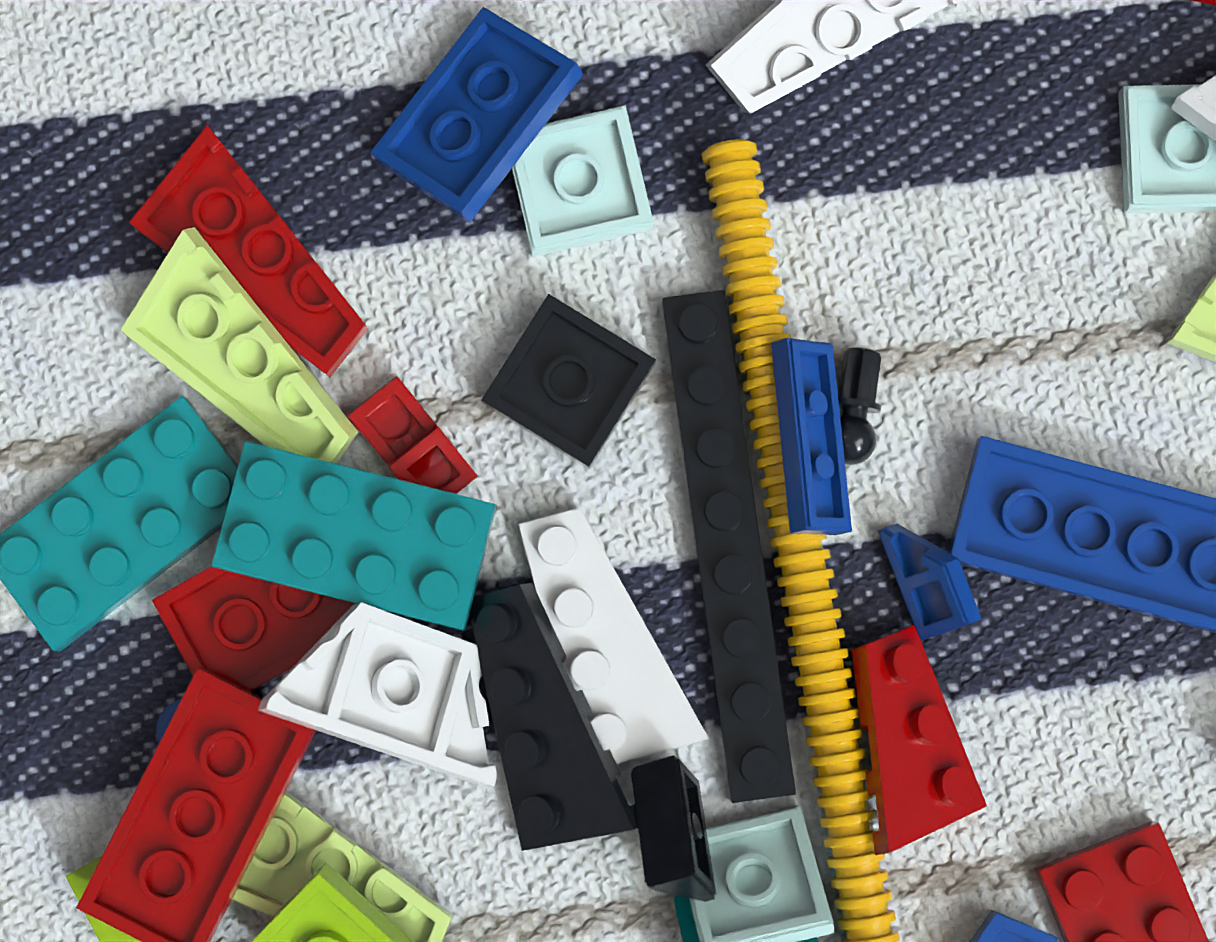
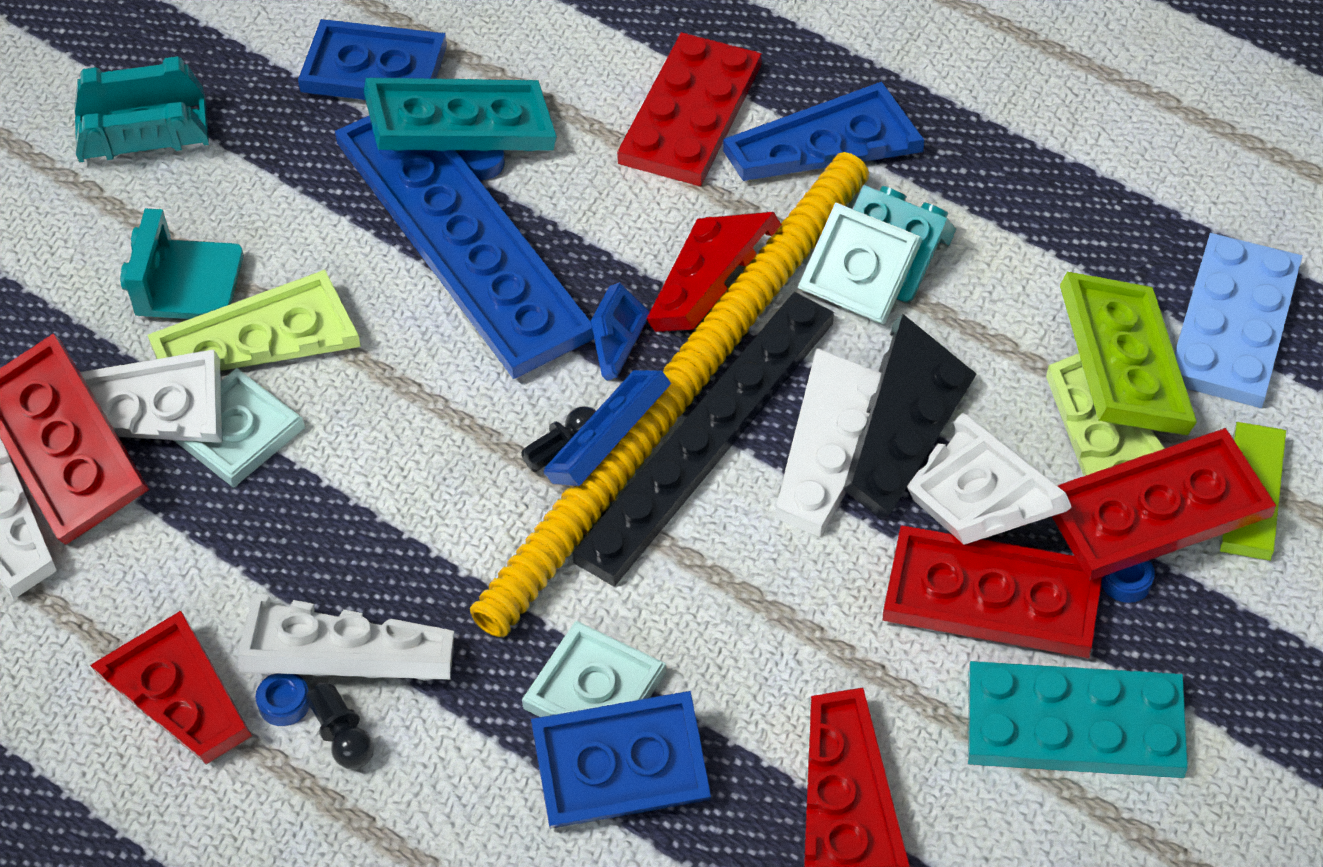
camera: 140 degrees left, 30 degrees down
(229, 352) = (914, 751): yellowish green wing -> none
(354, 535) = (930, 581): teal plate -> none
(410, 440) = (845, 620): red slope -> none
(568, 381) = (715, 575): black plate -> none
(672, 829) = (881, 308): black slope -> none

